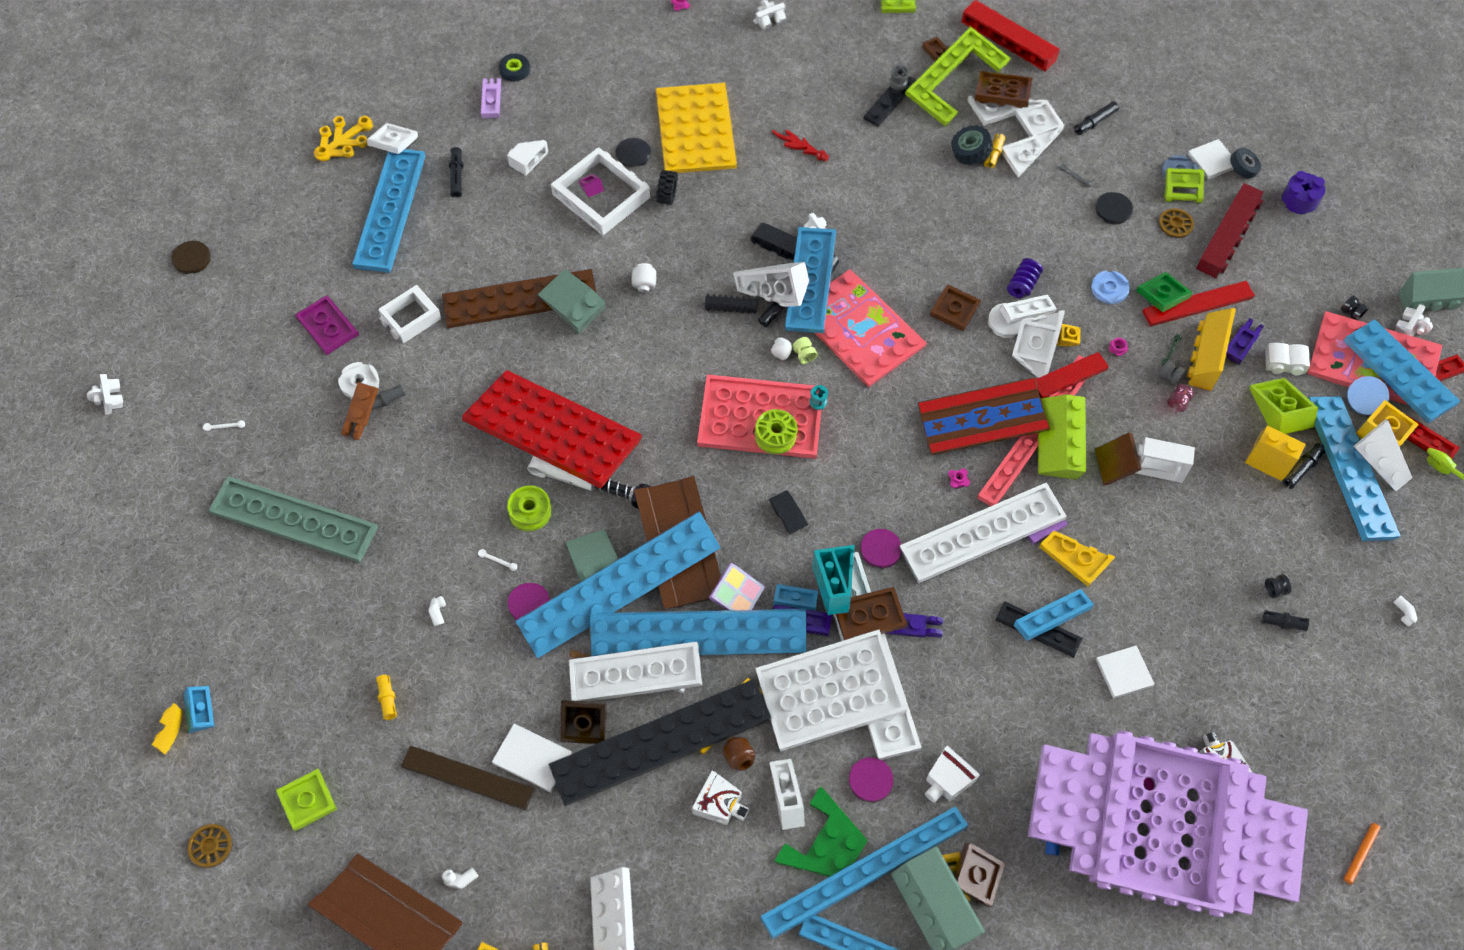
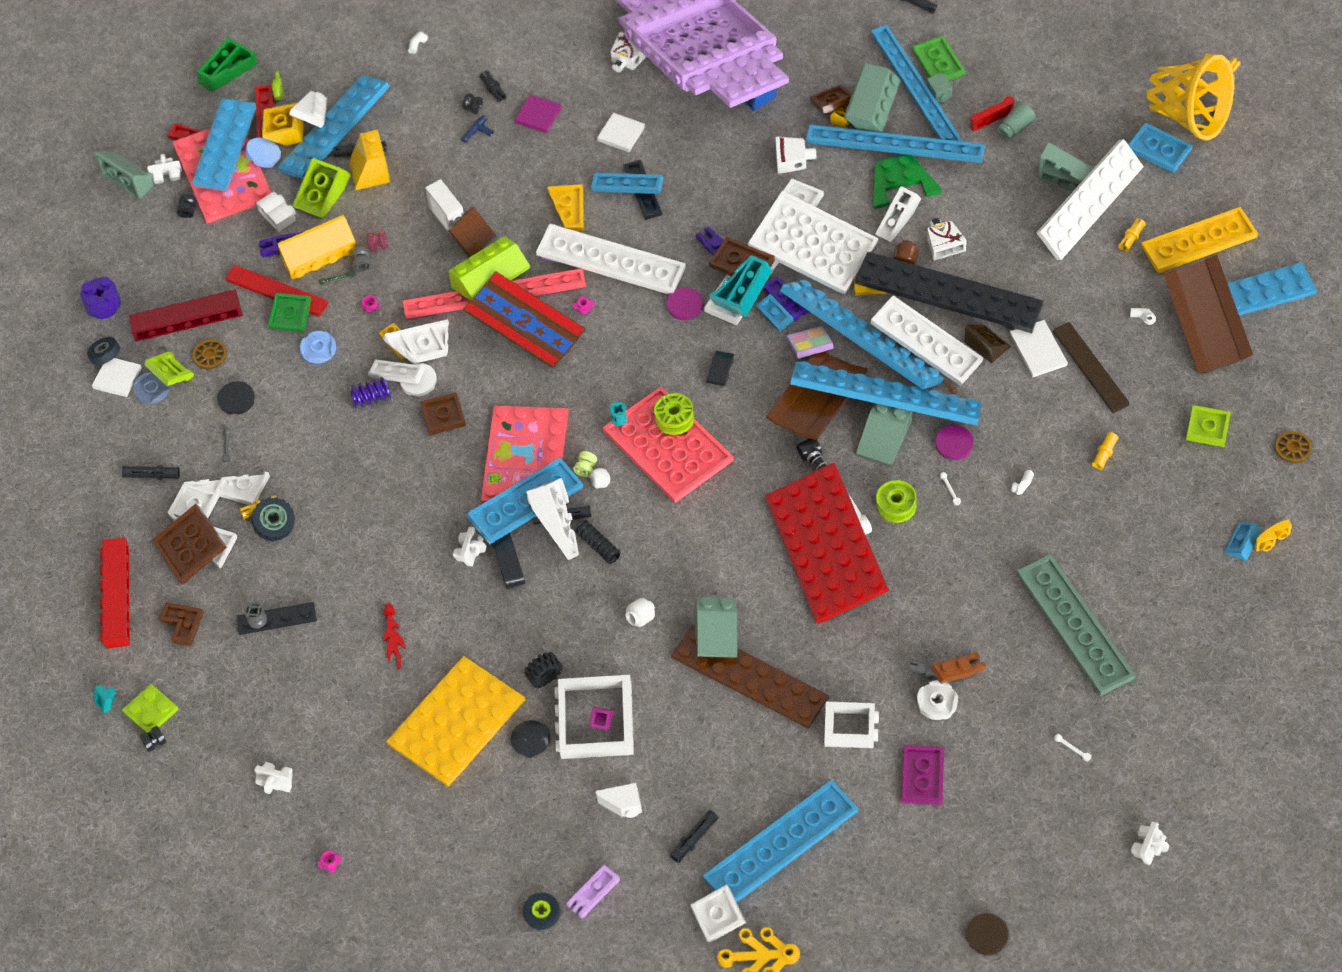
camera: 130 degrees left, 5 degrees down
(871, 779) = (839, 189): magenta tile -> none
(969, 42) = (160, 601): lime plate -> none
(1071, 374) = (430, 303): red tile -> none
(1215, 629) = (538, 113): none -> magenta tile
(1246, 569) = (478, 125): none -> dark blue piece

